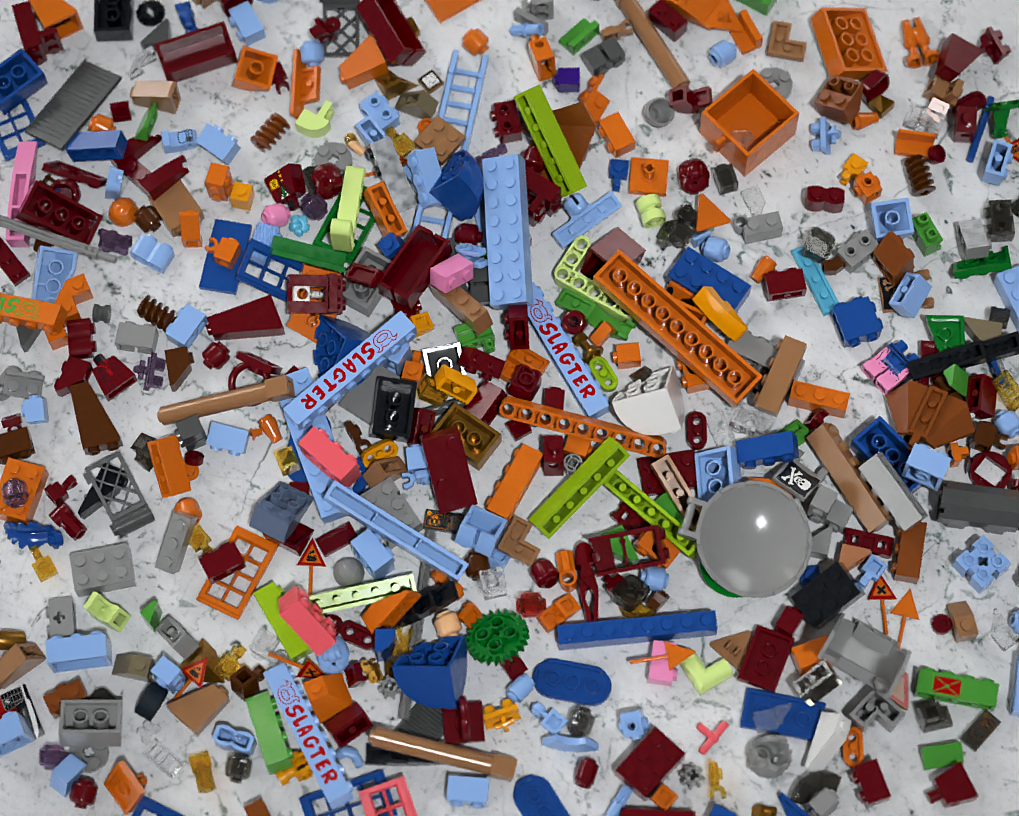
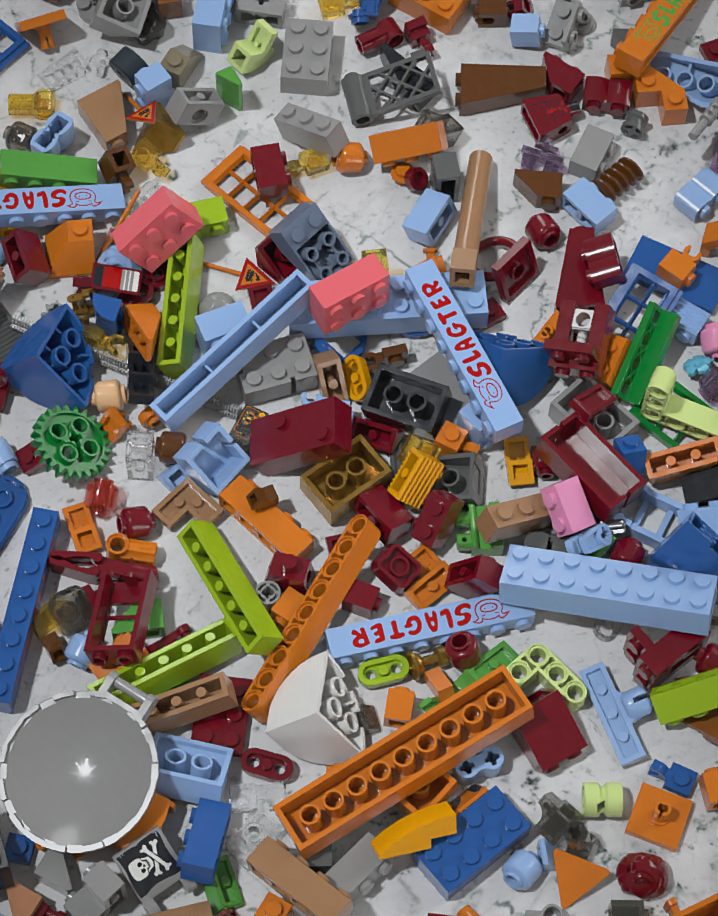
camera: 100 degrees right, 5 degrees down
(240, 298) = (603, 261): none -> dark red brick
(352, 646) = (116, 278): none -> slope
(503, 483) = (262, 498): none -> reddish brown piece

